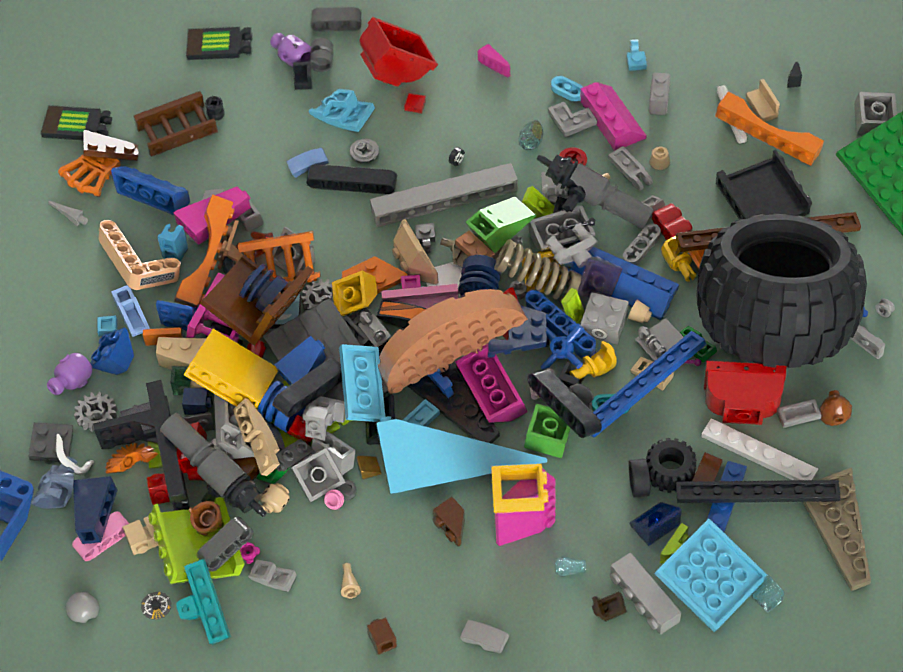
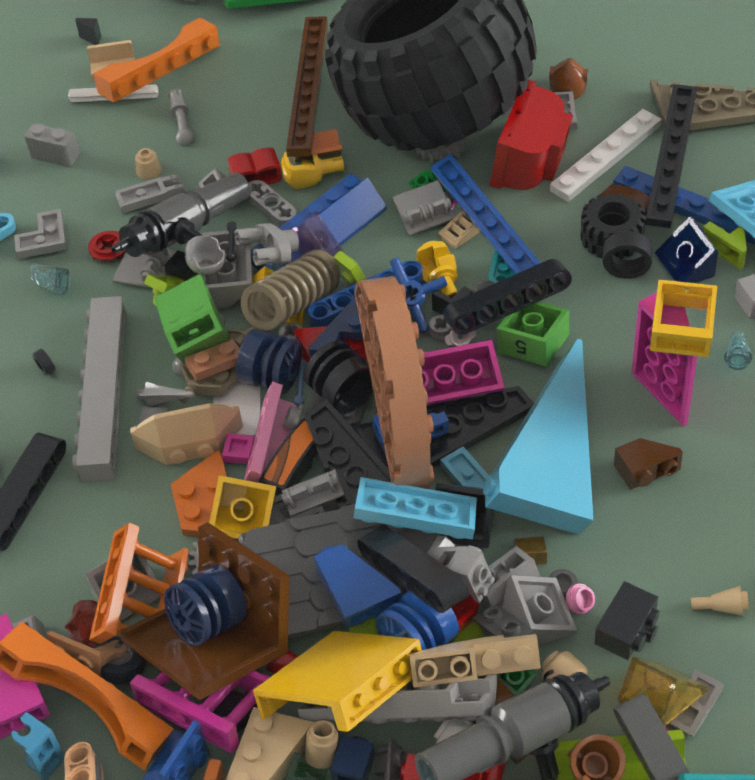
camera: 75 degrees left, 5 degrees down
(273, 551) = (664, 687): none -> clear yellow slope
(312, 520) = (628, 621): none -> black brick
(443, 227) = (157, 394): none -> light grey piece
(550, 211) = (204, 255): none -> light grey hair
(605, 317) = (374, 246): light grey brick -> none
(611, 115) = (71, 195): dark pink slope -> none
(640, 312) = (374, 220): tan hat -> none
(699, 173) = (179, 110): none -> light grey pin
(764, 190) = (243, 85): black panel -> none

